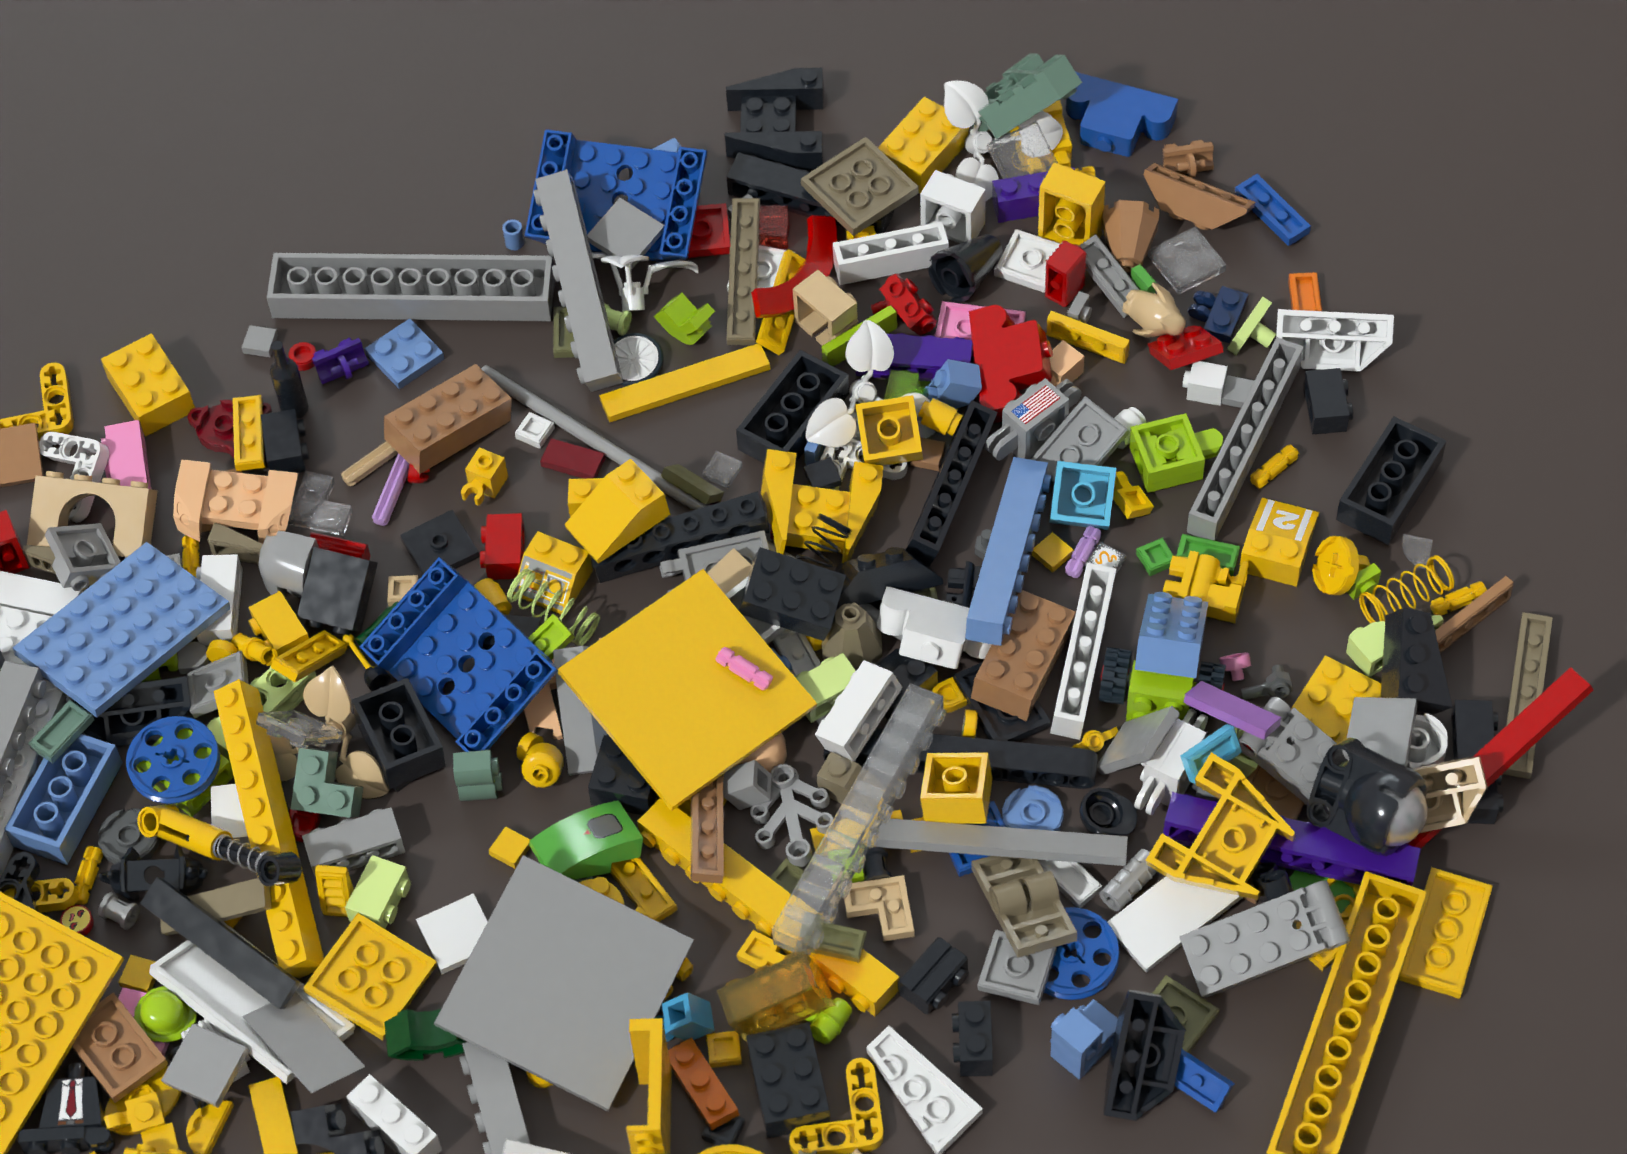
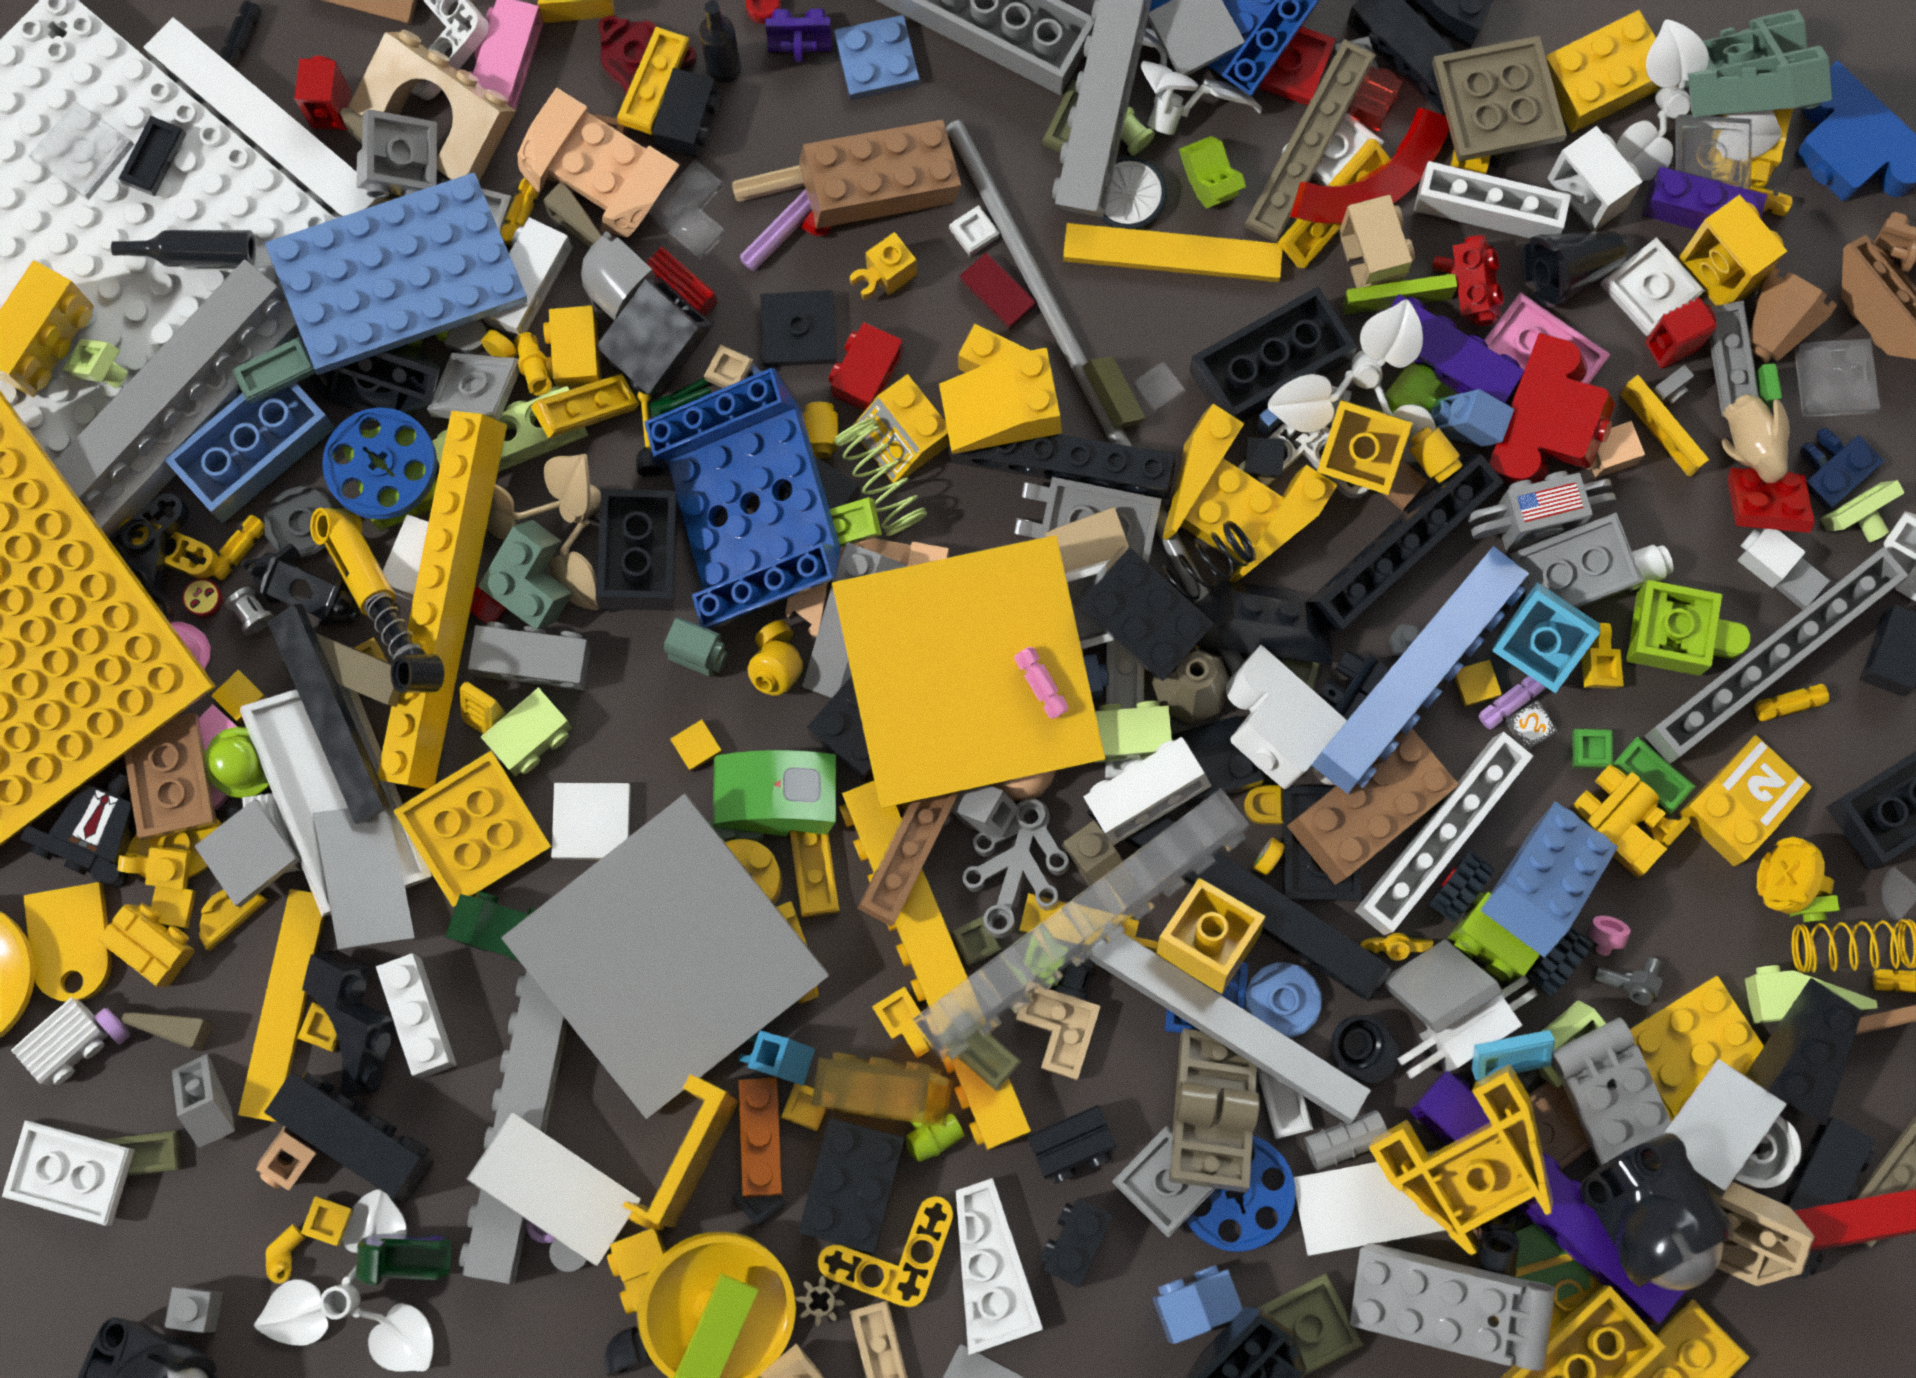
camera: 25 degrees right, 20 degrees up
(298, 728) = (525, 497): clear plate -> none
(1232, 710) = (1565, 1018): medium lavender tile -> none

